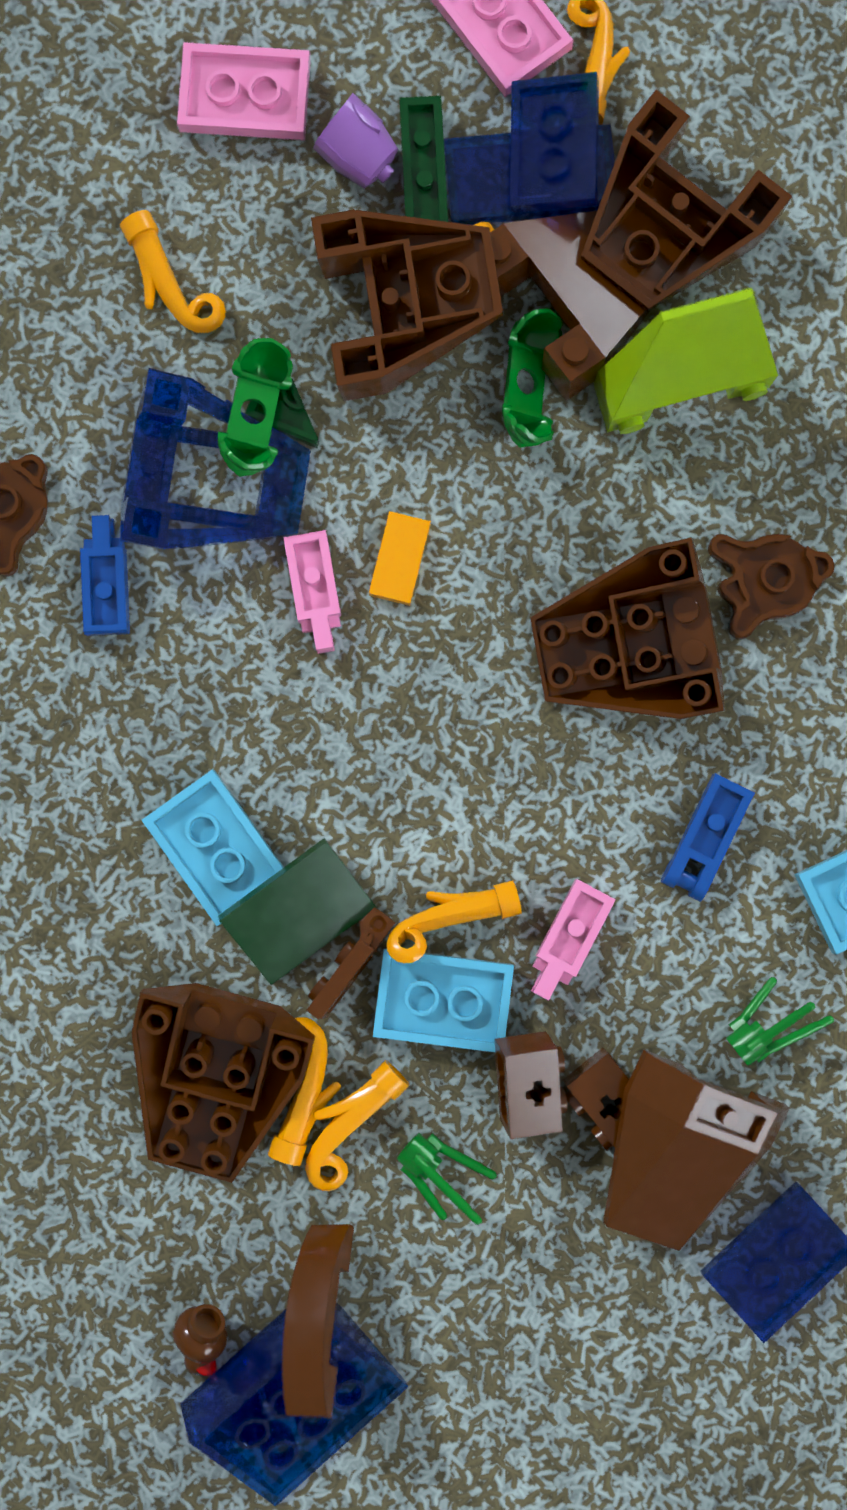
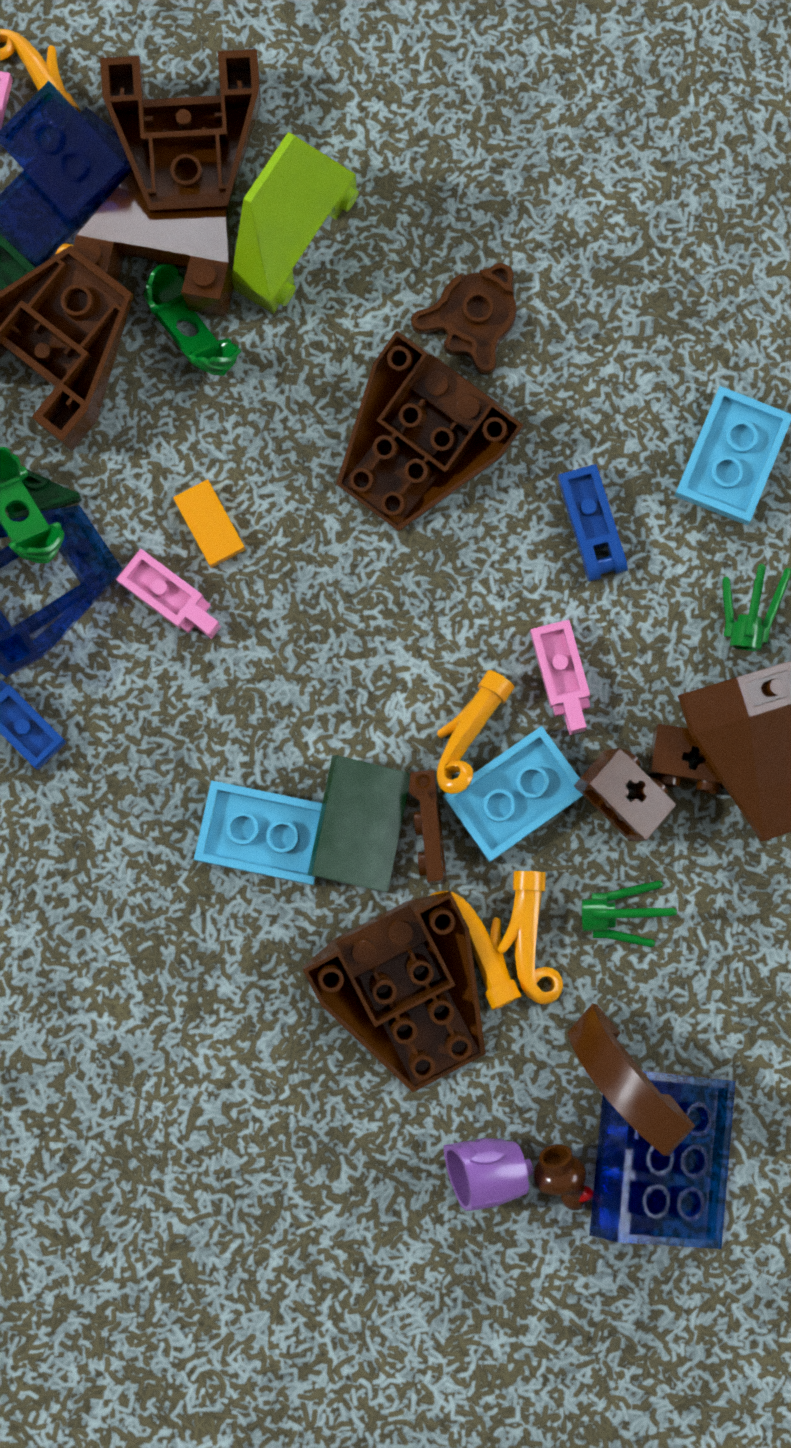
camera: 40 degrees left, 5 degrees down
(144, 1282) = (487, 1172): none -> medium lavender helmet

